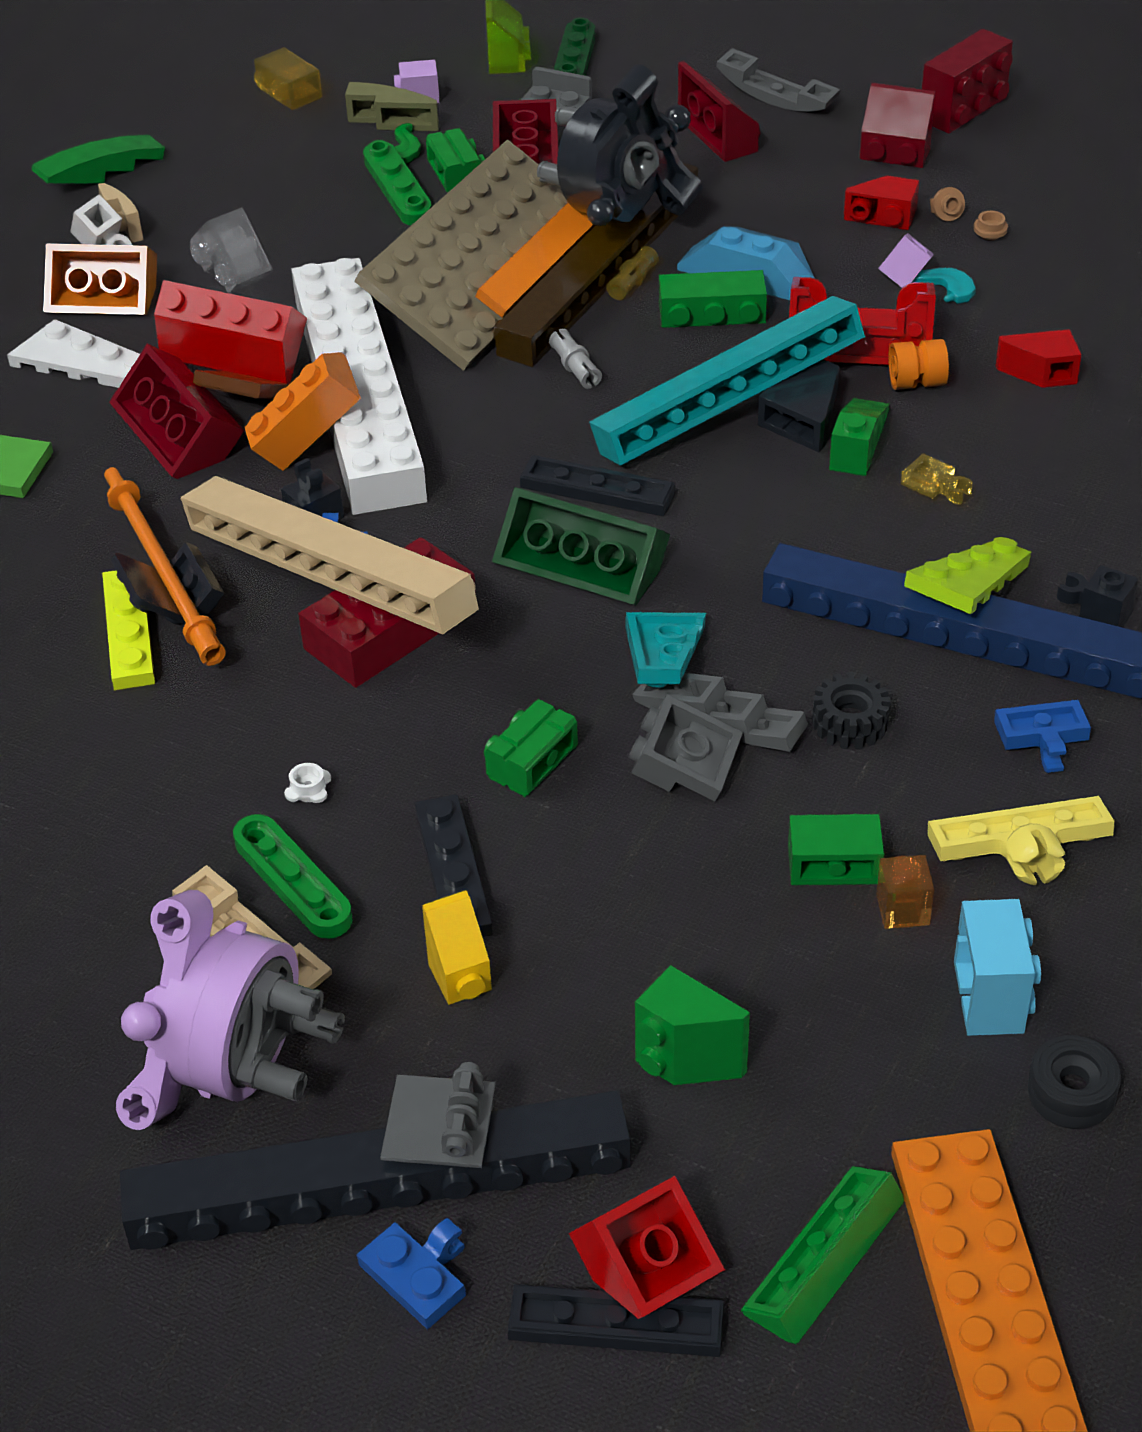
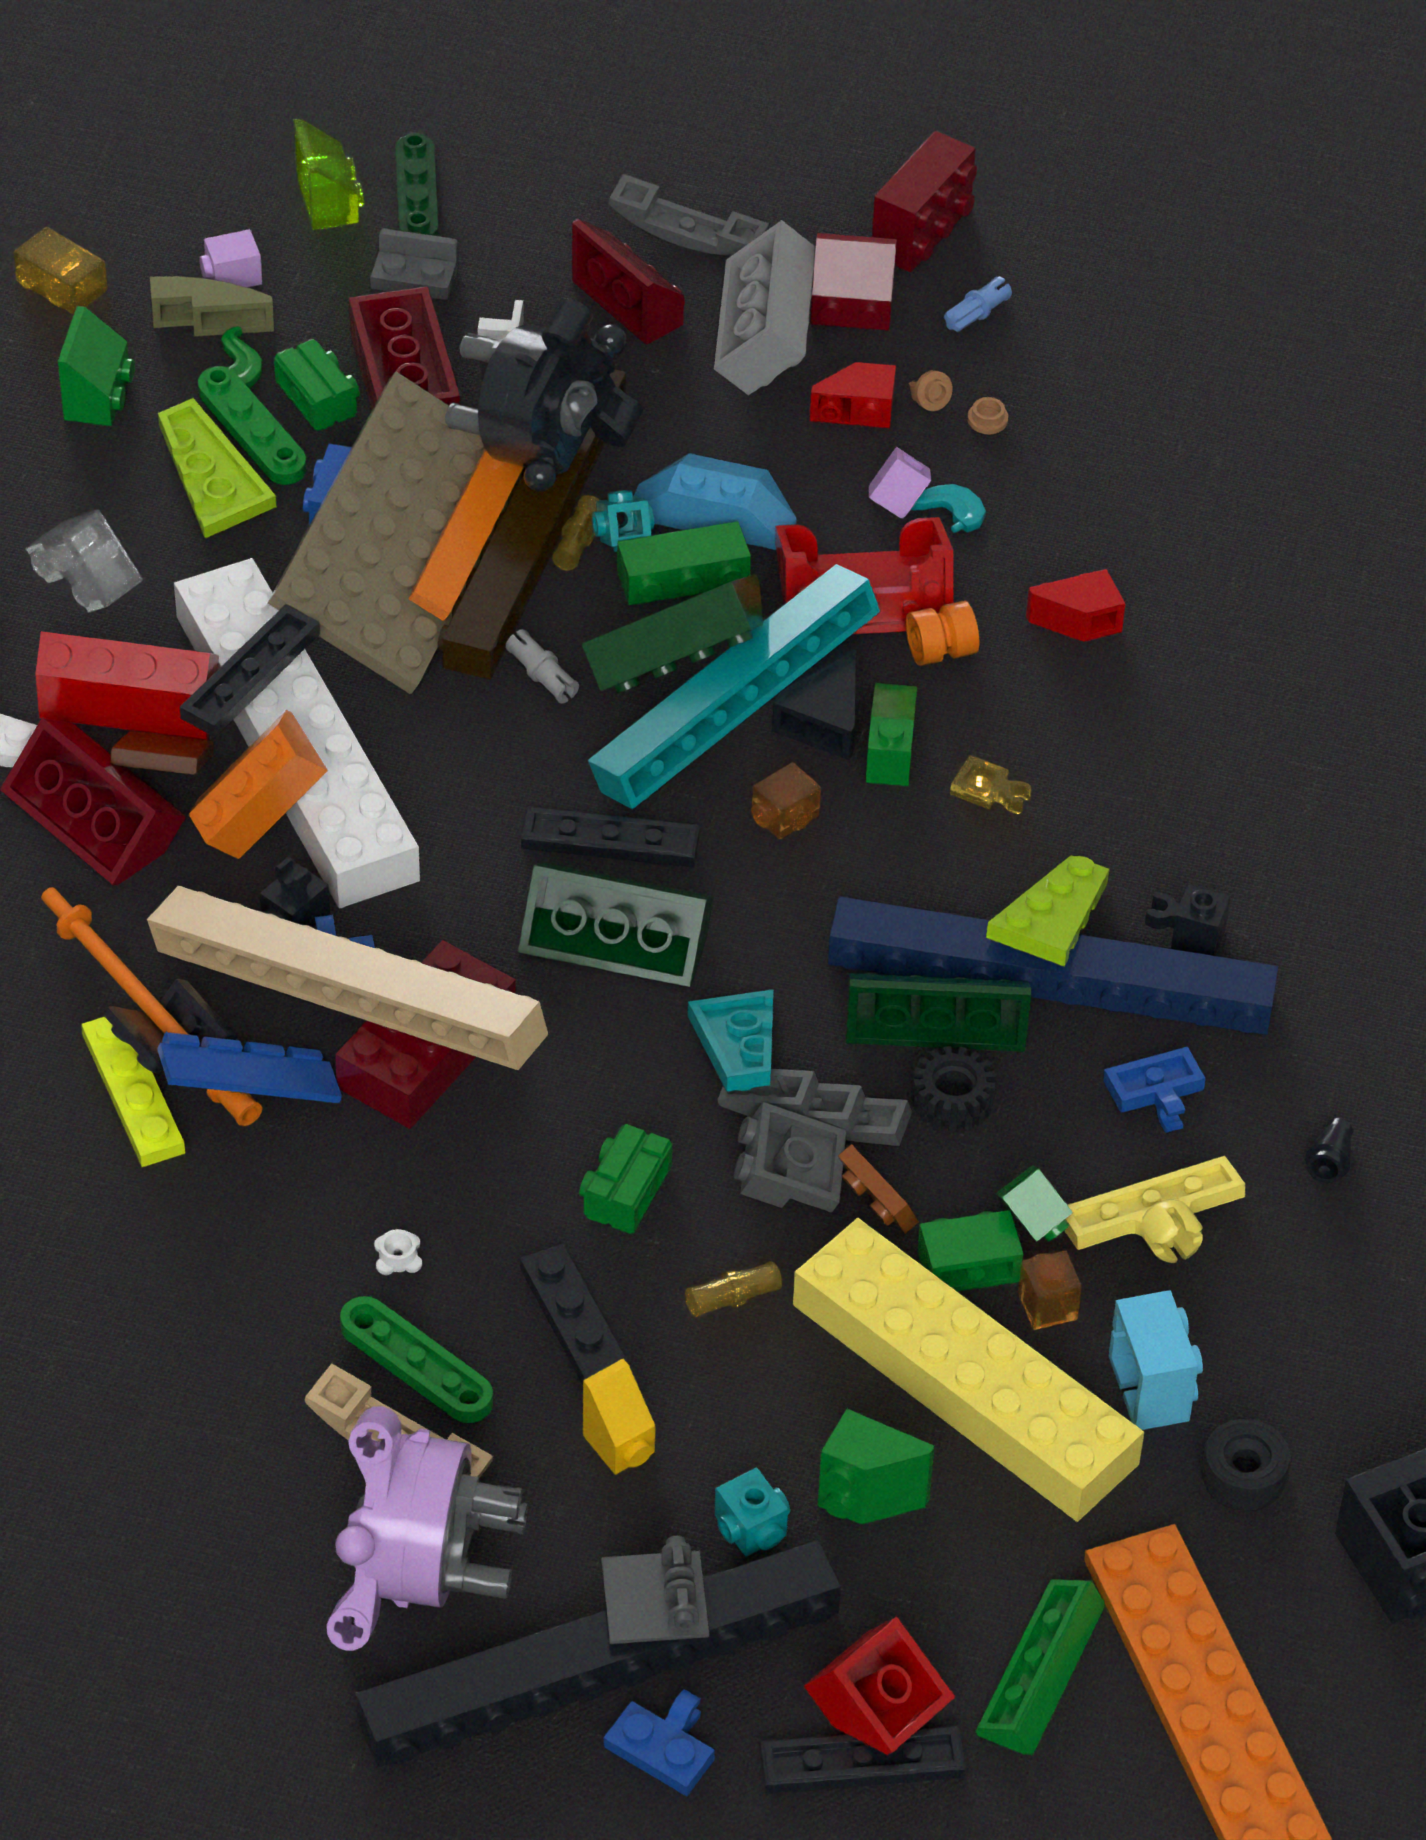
camera: 15 degrees left, 5 degrees up
(236, 621) = (256, 1070): none -> blue windscreen
(284, 133) = (93, 370): none -> green slope
(323, 325) = (250, 670): none -> black plate
(357, 209) = (213, 472): none -> lime wing
(562, 1055) = (751, 1512): none -> teal brick
(603, 852) = (733, 1288): none -> clear yellow pin
(668, 250) = (637, 518): none -> teal brick
(686, 333) = (675, 633): none -> dark green slope
(753, 471) = (786, 801): none -> clear orange brick
(765, 797) = (887, 1202): none -> dark orange plate
(814, 957) = (968, 1369): none -> light yellow brick
(821, 136) = (765, 308): none -> light grey brick
(847, 641) = (937, 1012): none -> dark green slope
(905, 813) = (1036, 1204): none -> slope
(997, 153) = (977, 304): none -> medium blue axle

